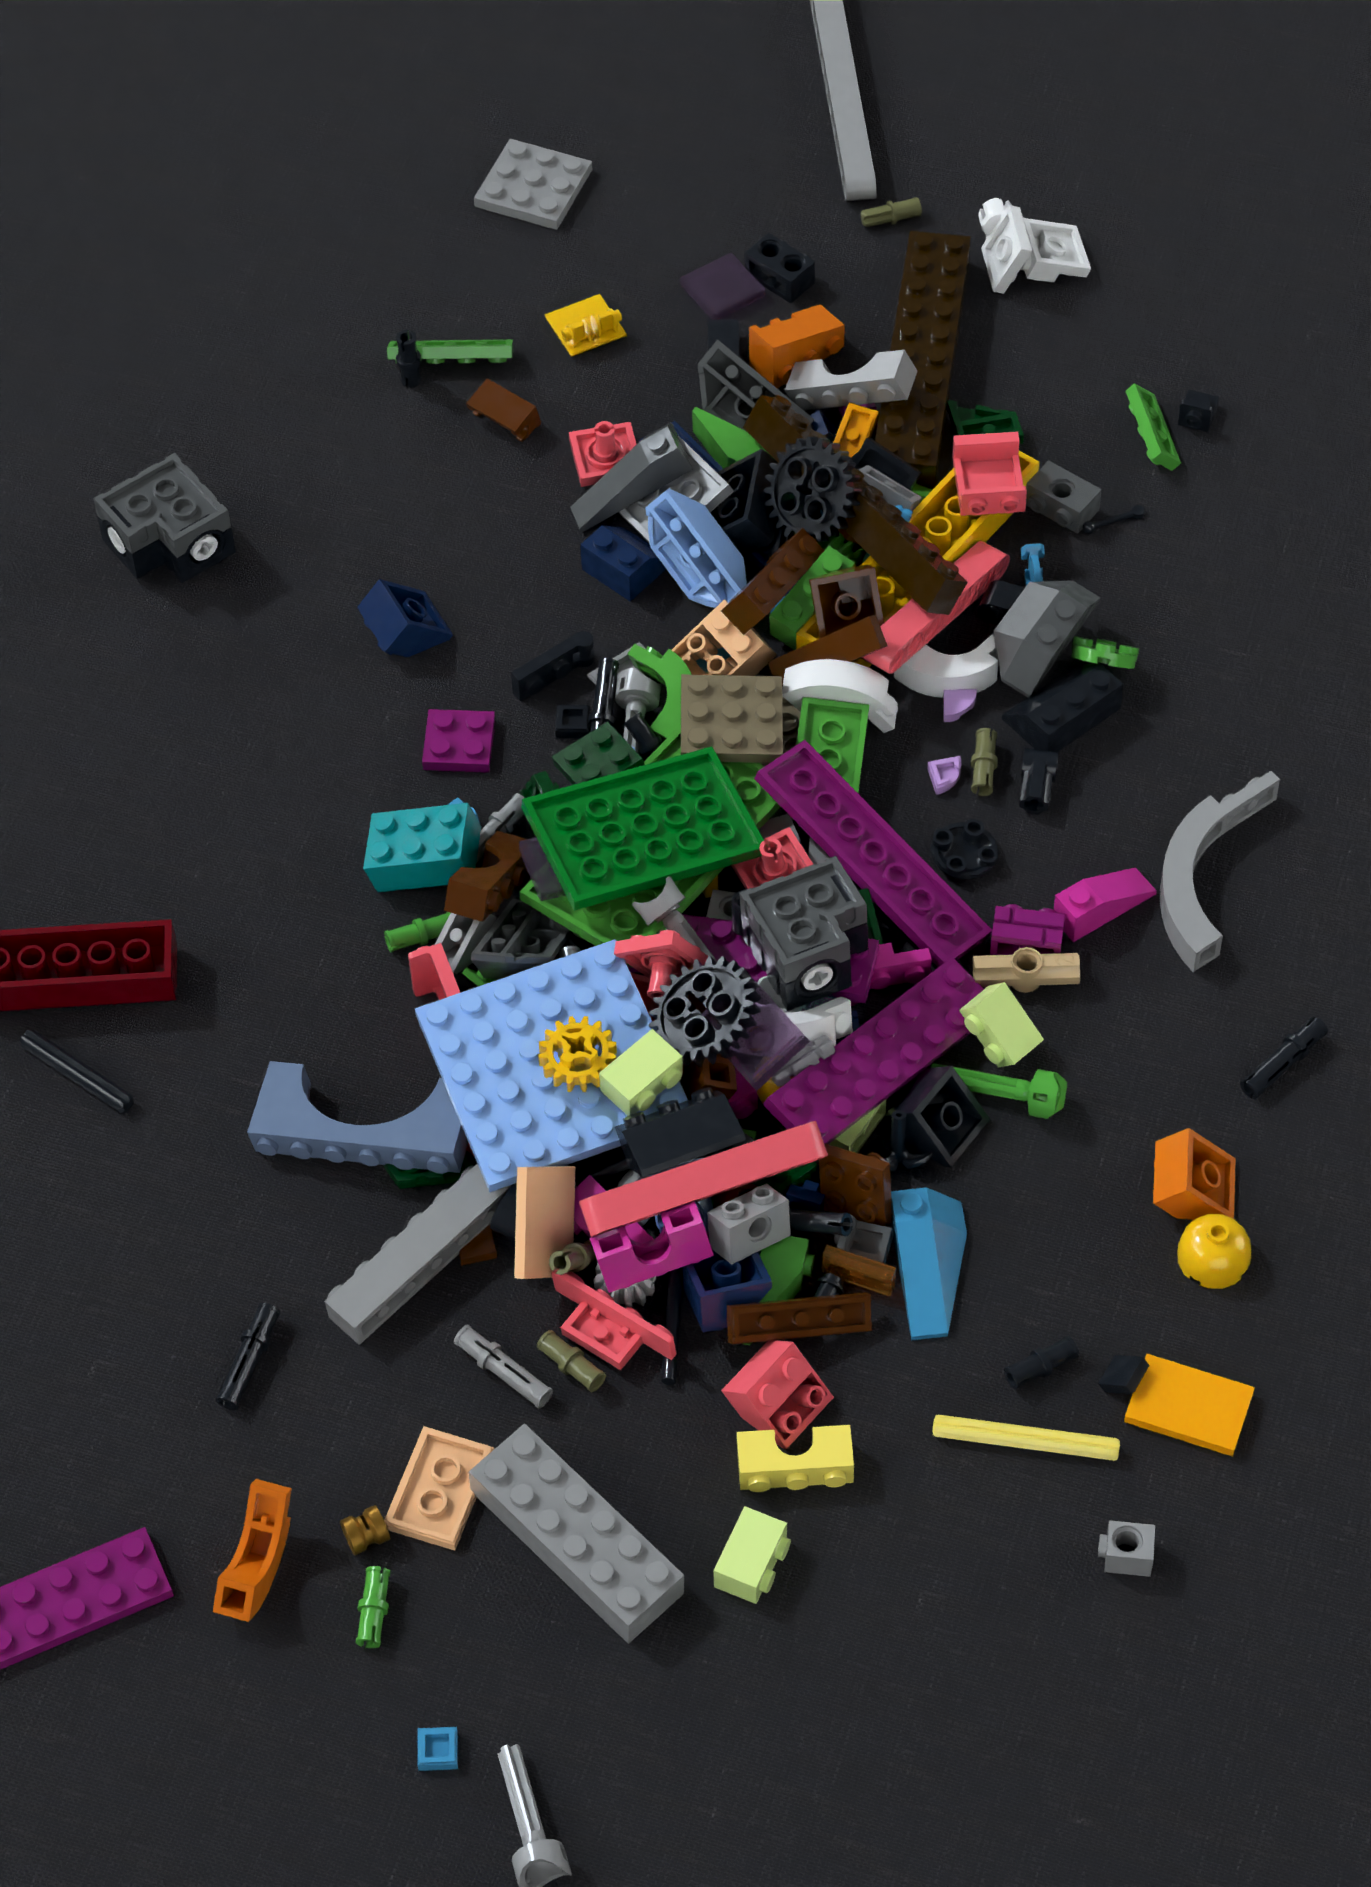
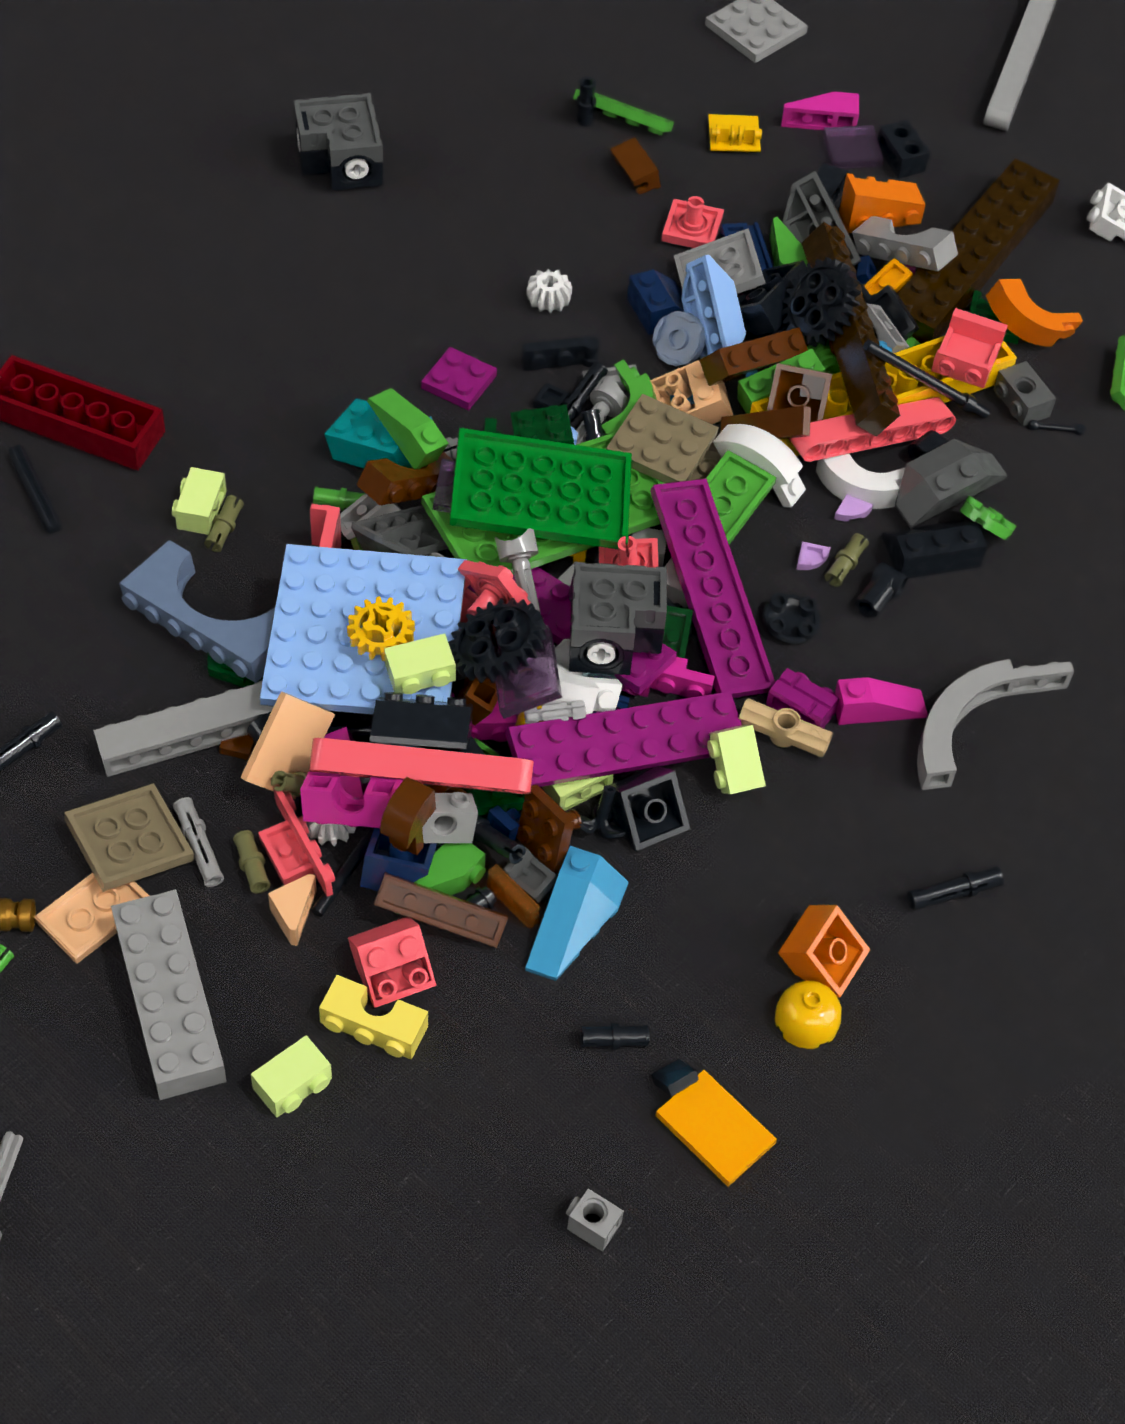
camera: 20 degrees right, 0 degrees up
(269, 1003) = (199, 500): none -> yellowish green brick
(310, 1016) = (223, 523): none -> olive pin
(402, 619) = (471, 277): dark blue slope -> none
(430, 1394) = (128, 837): none -> dark tan plate
(464, 822) = (409, 428): none -> bright green slope
(497, 598) = (549, 290): none -> white gear
(642, 1388) = (292, 905): none -> light nougat slope
(644, 469) = (718, 237): dark grey wedge -> none
(670, 259) = (822, 111): none -> dark pink slope
(672, 593) = (679, 338): none -> sand blue tile
(727, 1234) = (407, 814): none -> reddish brown brick
(891, 212) = (1012, 144): olive axle -> none
(1005, 242) = (1086, 195): white plate -> none
(1008, 532) = (964, 400): none -> black bar
(1019, 411) = (1025, 318): none -> orange arch
(1026, 1437) = (568, 1090): light yellow axle -> none
(1033, 553) = (973, 422): dark azure piece -> none
(1043, 1094) = (734, 824): bright green piece -> none

